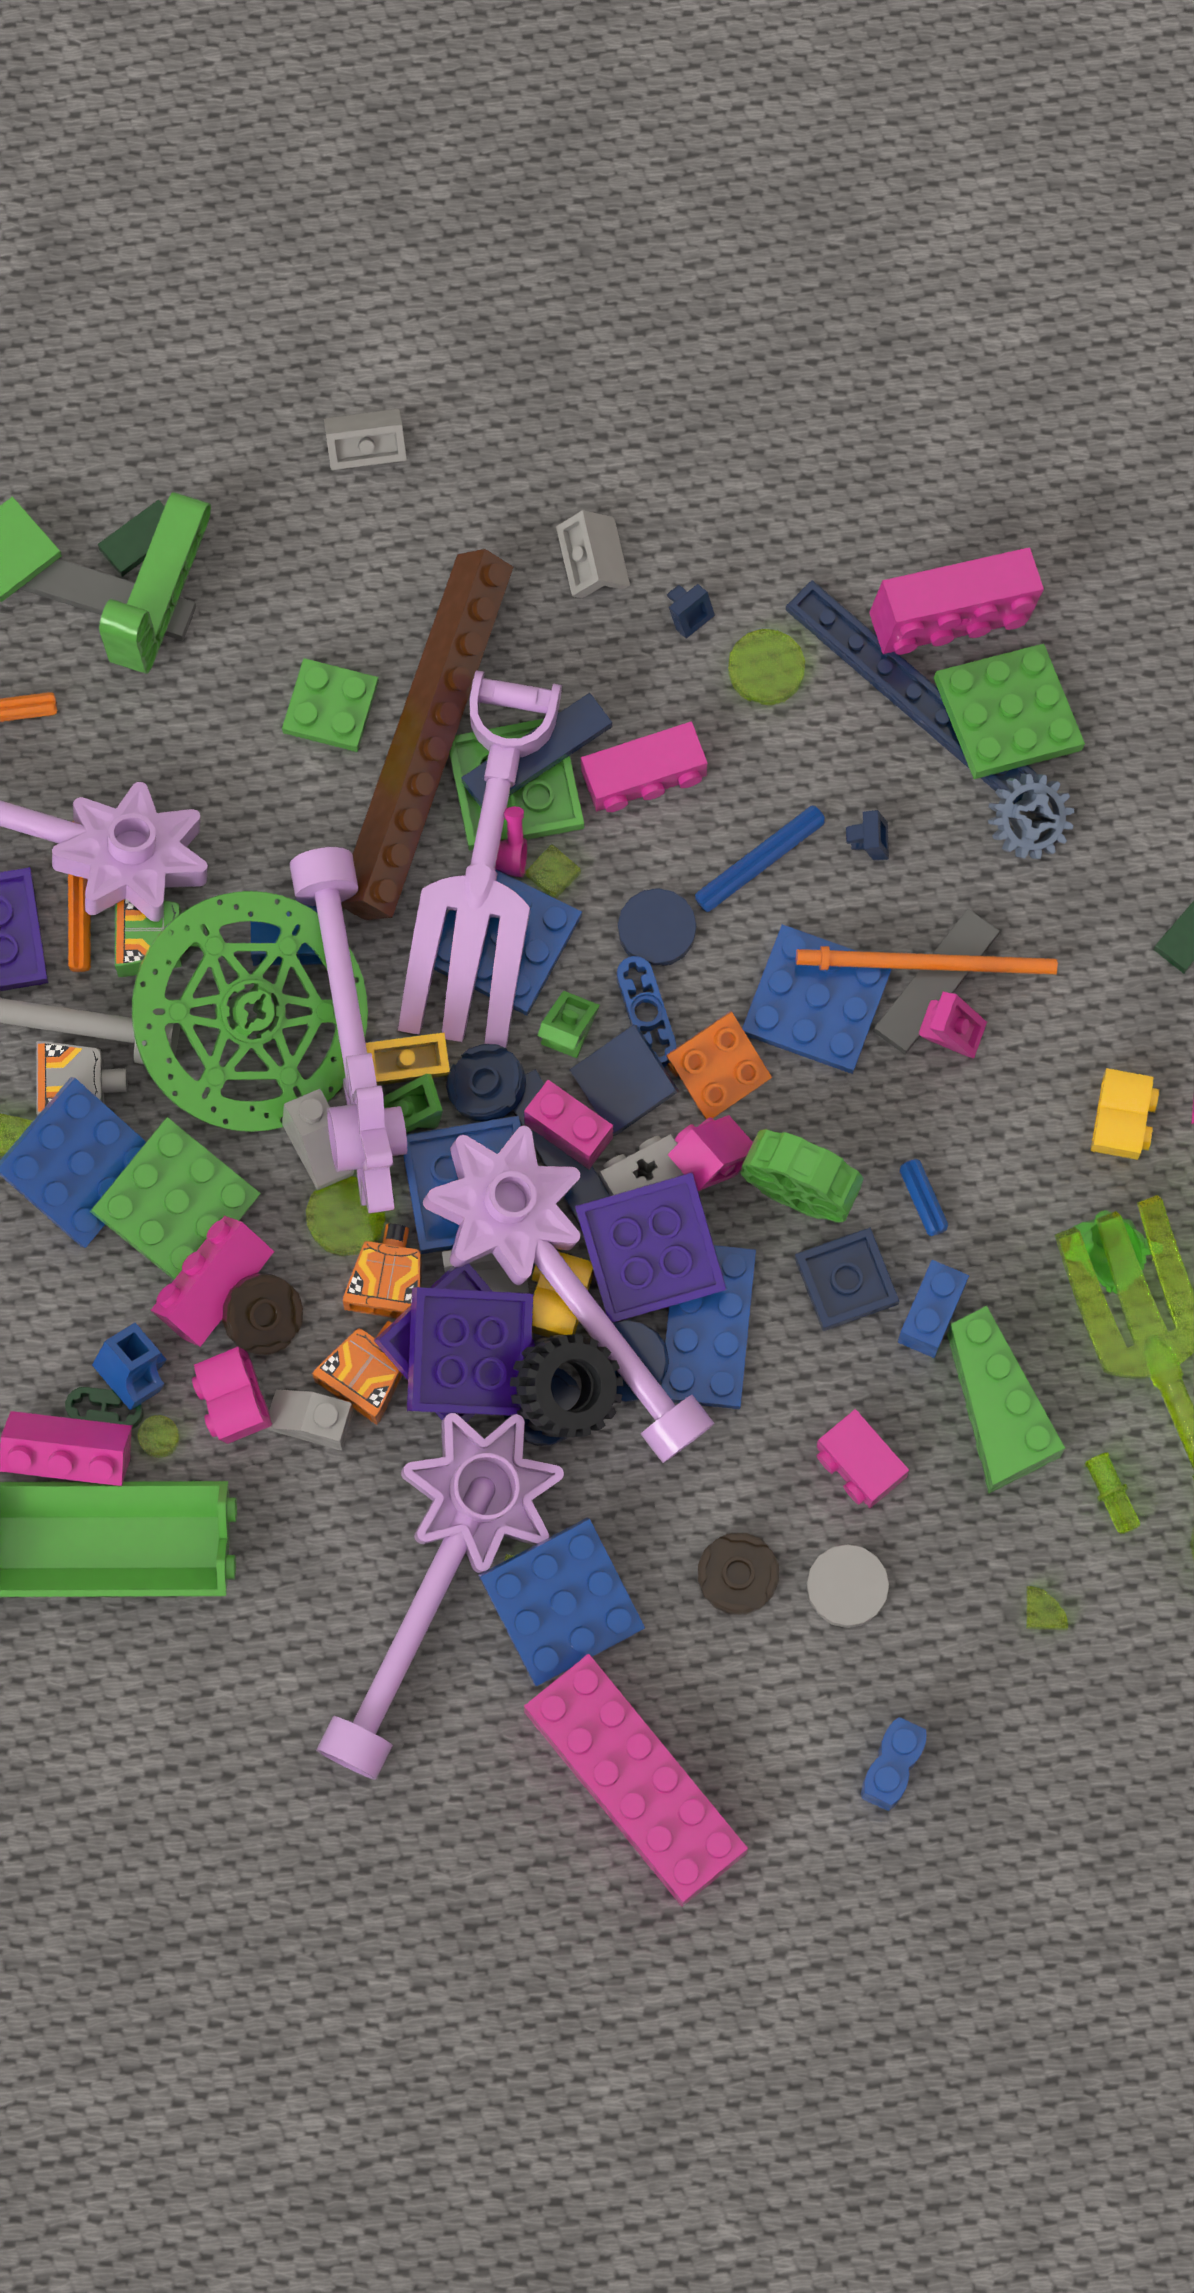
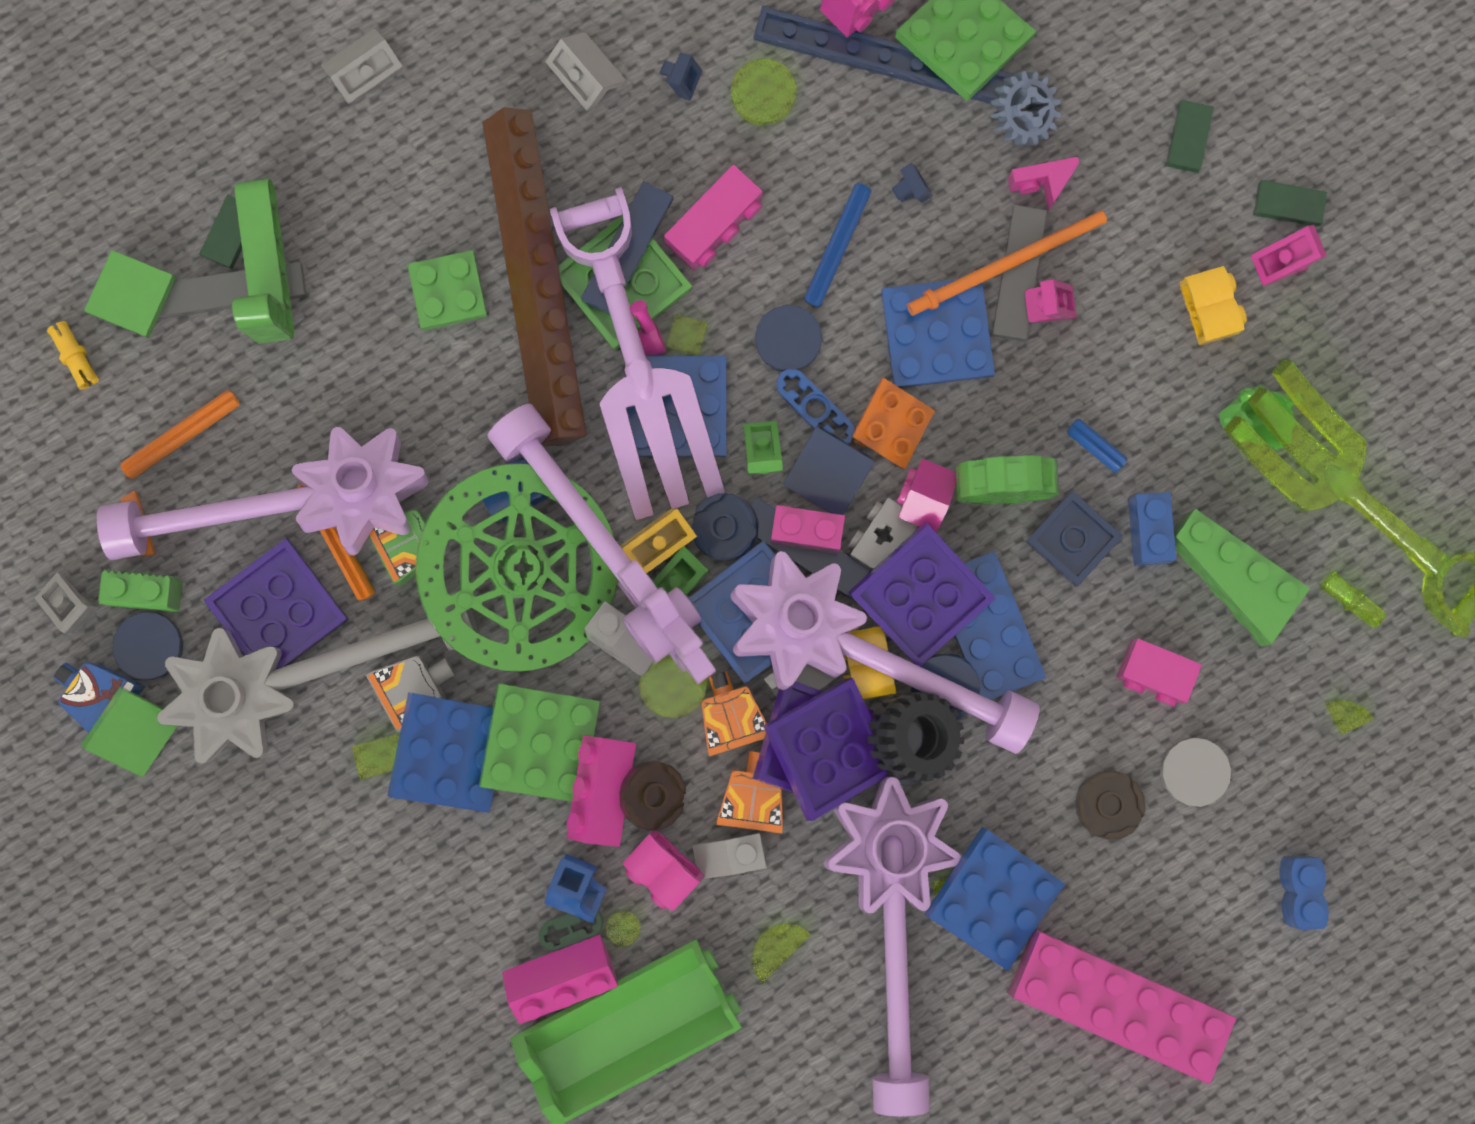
camera: 25 degrees left, 10 degrees up
(305, 1538) = (775, 947): none -> clear neon green tile
(1025, 897) = (1051, 175): none -> dark pink slope

